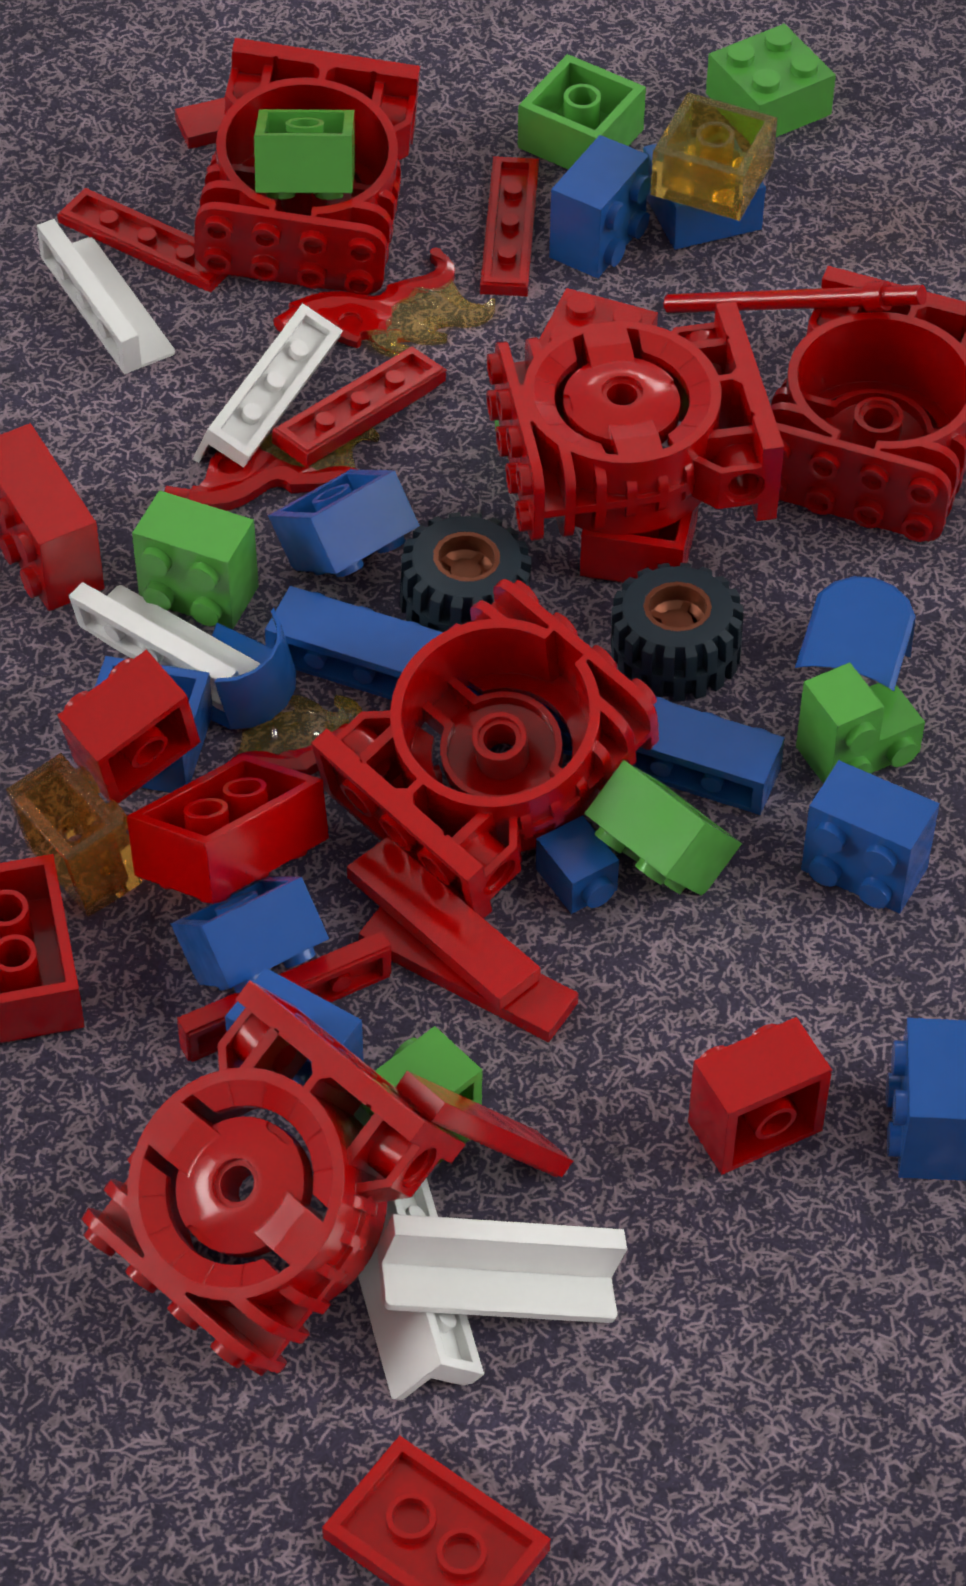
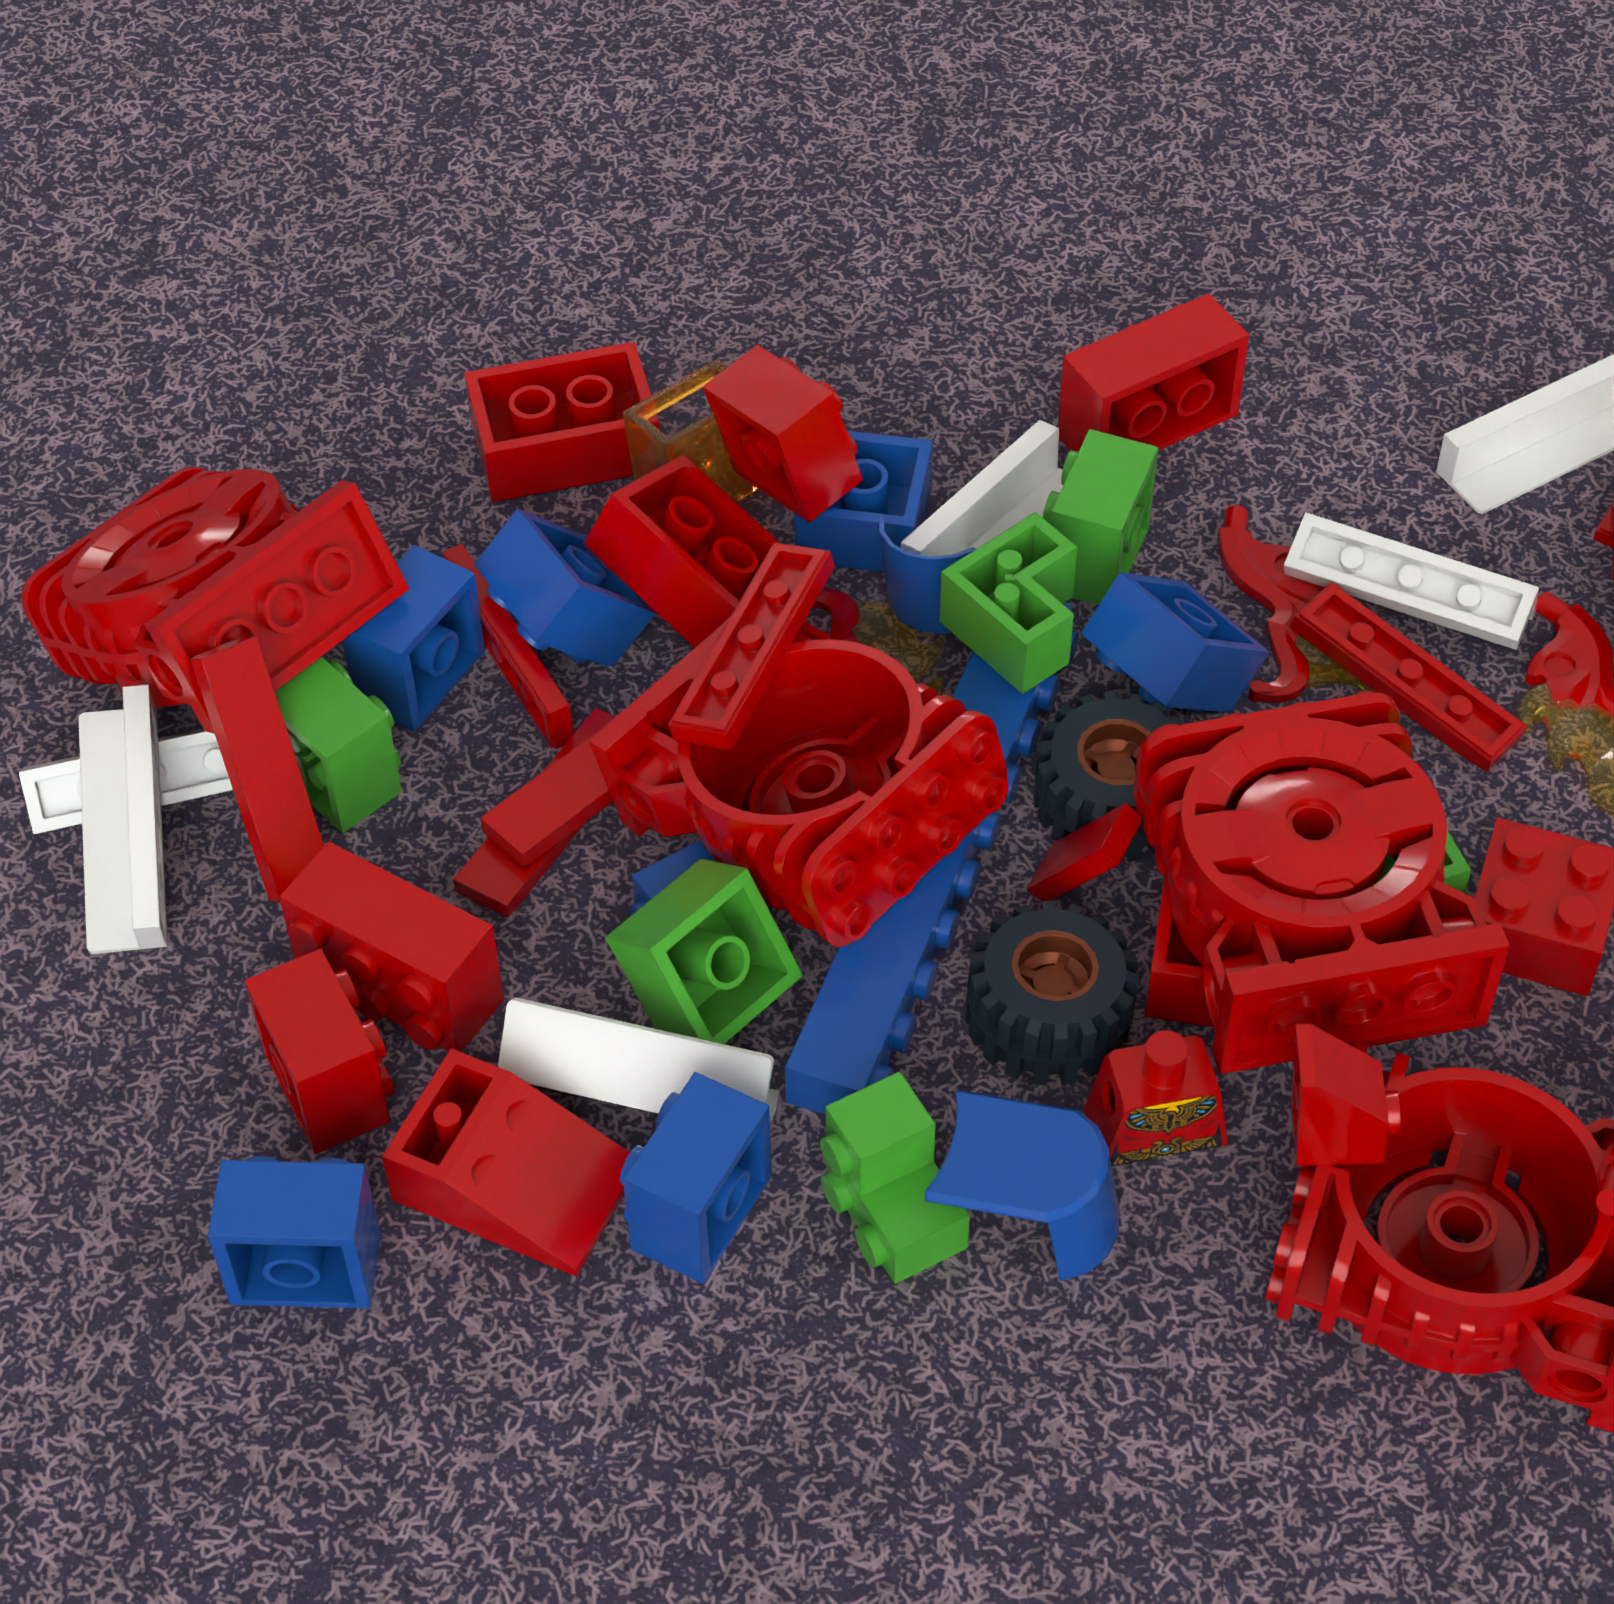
camera: 90 degrees right, 0 degrees up
(321, 605) = (1011, 600): none -> bright green brick
(393, 744) = (751, 646): none -> red tile
(559, 577) = (1085, 853): none -> red tile
(650, 1048) = (400, 945): none -> red brick
(761, 892) = (621, 1059): none -> white panel
(773, 554) = (1157, 1099): none -> red torso
(846, 979) = (505, 1164): none -> red slope
(850, 426) = (1339, 1102): none -> red slope

